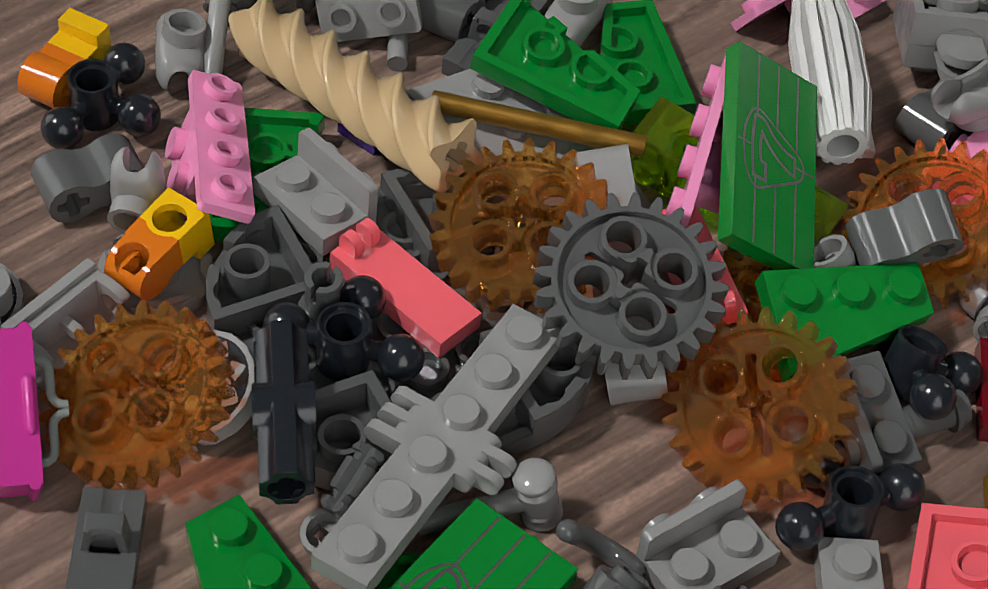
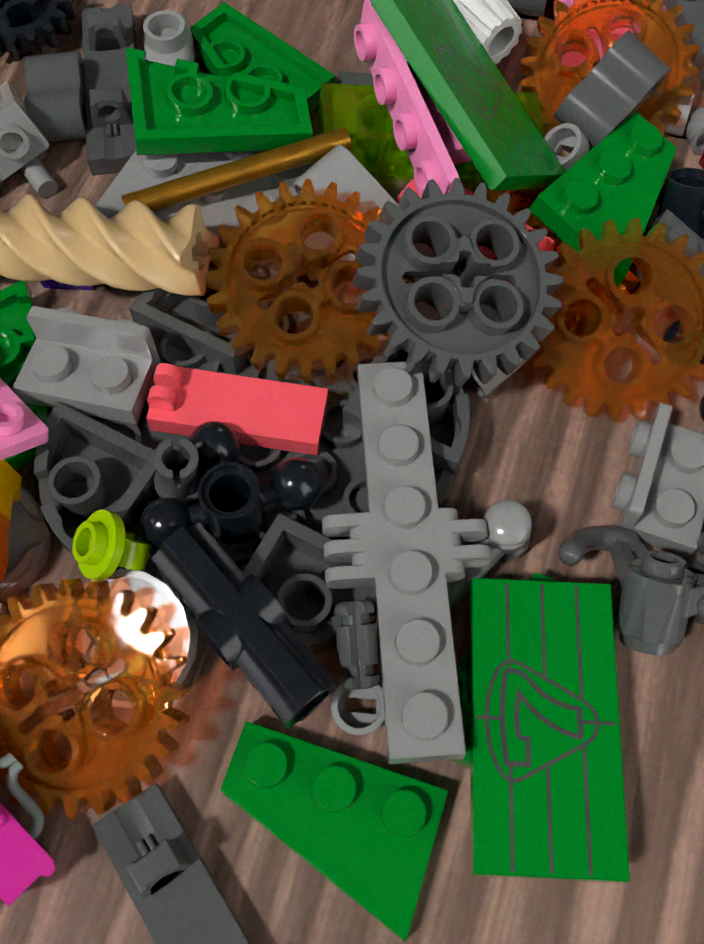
camera: 30 degrees left, 15 degrees up
(230, 306) = (104, 545): none -> lime plate

